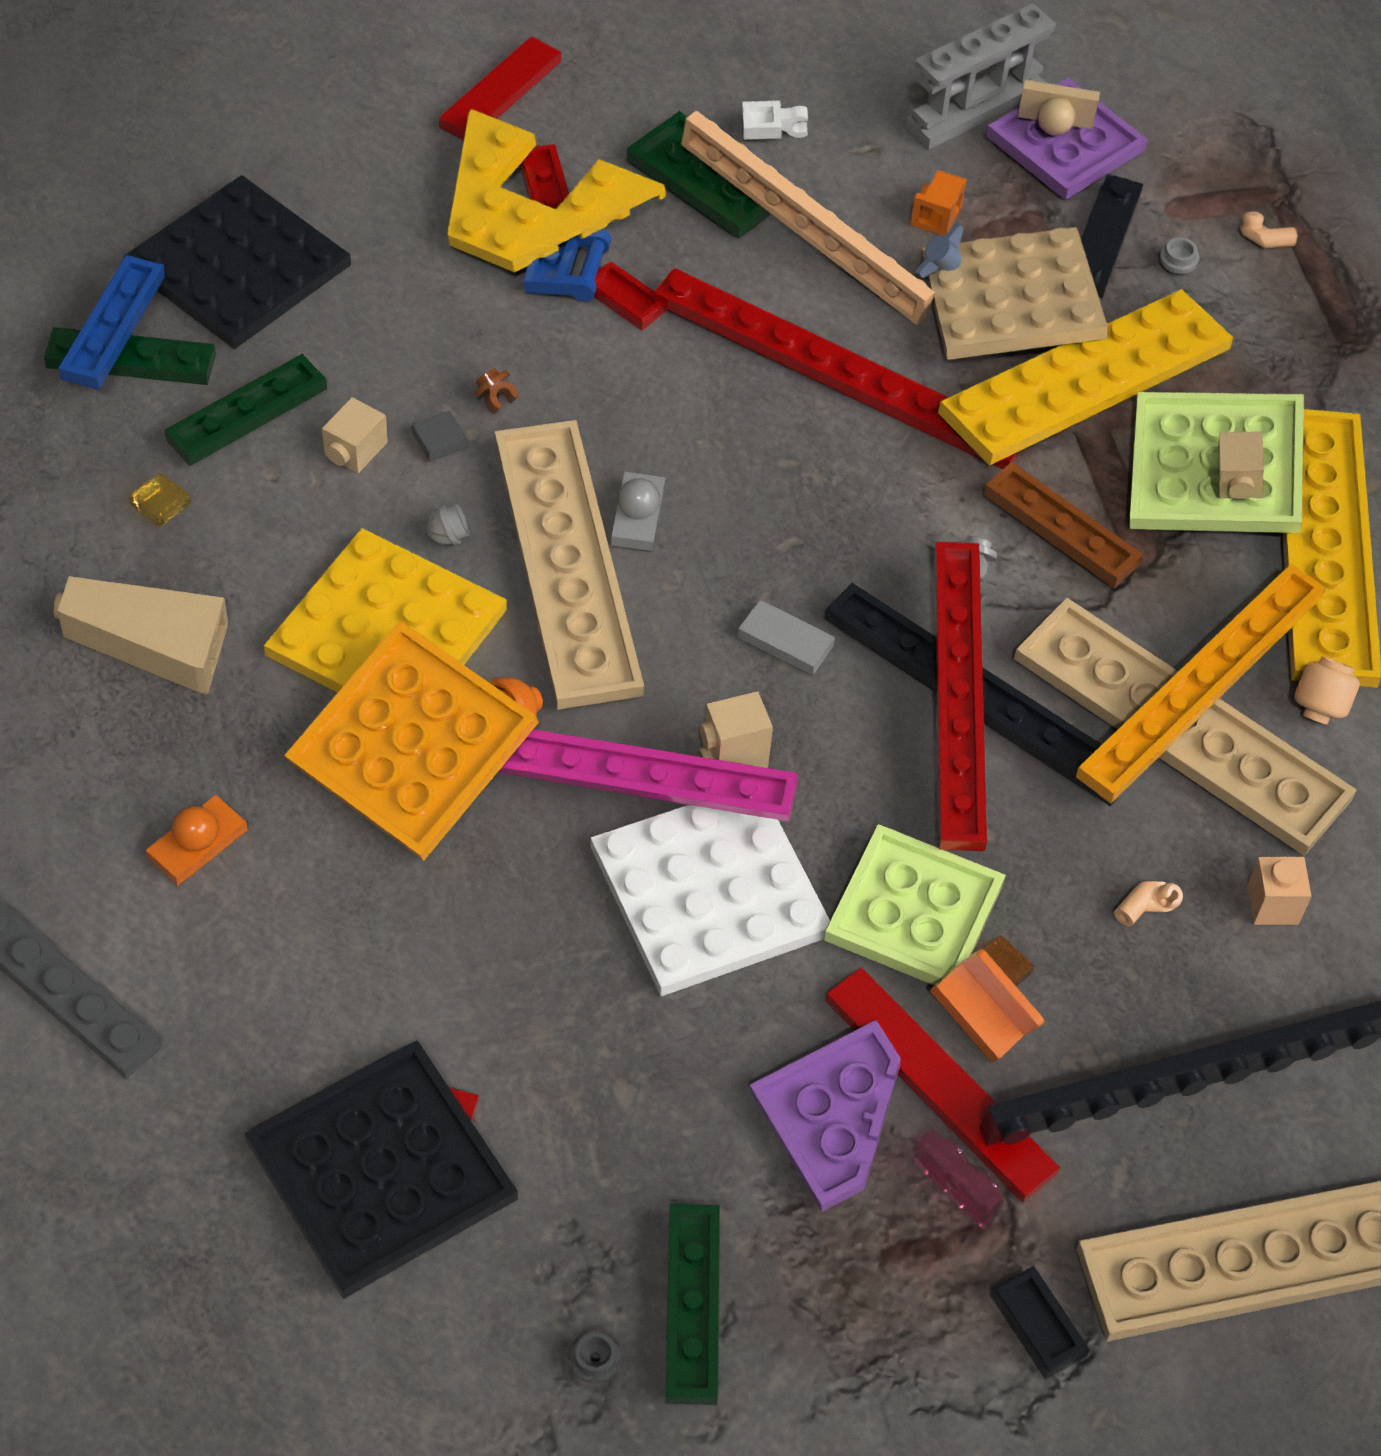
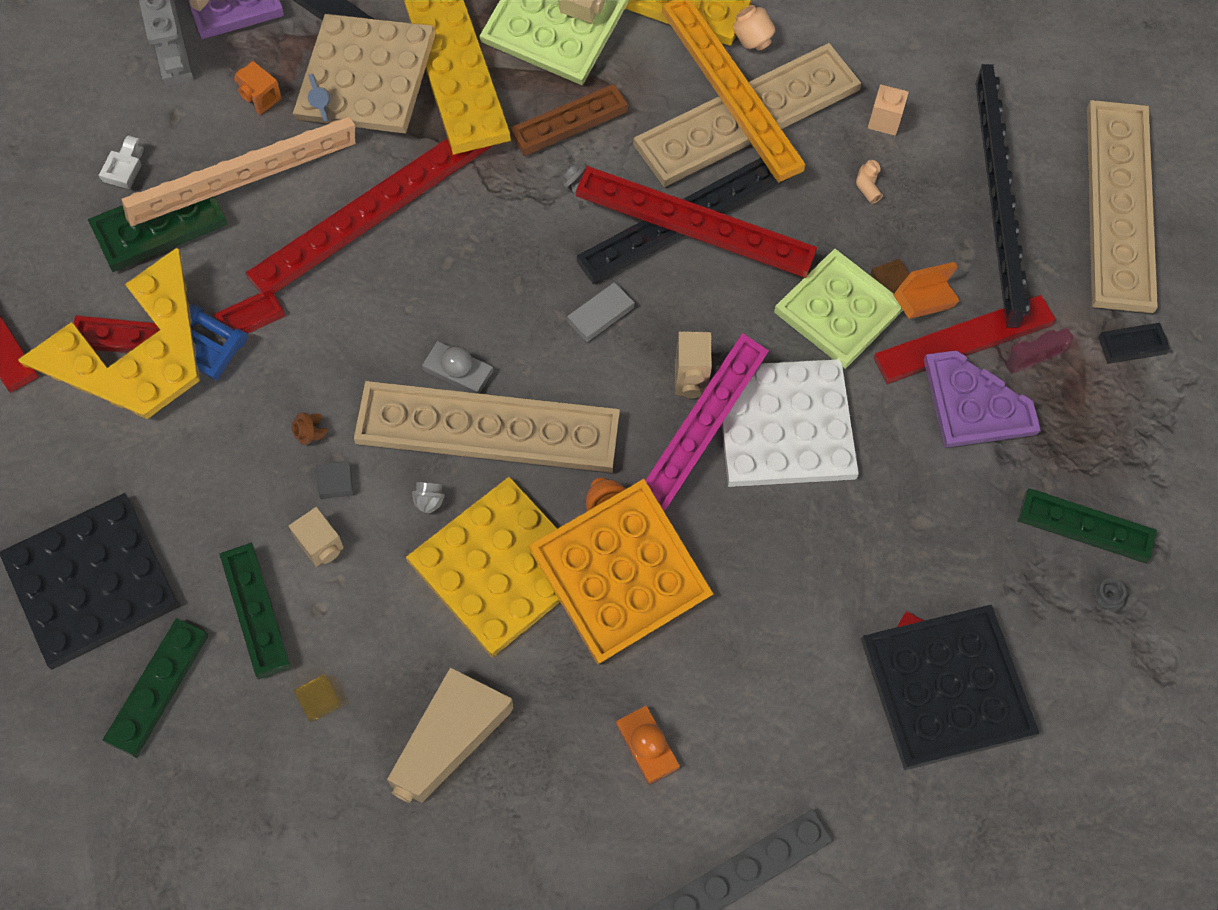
camera: 70 degrees left, 10 degrees up
(111, 322) = (131, 687): blue plate -> none

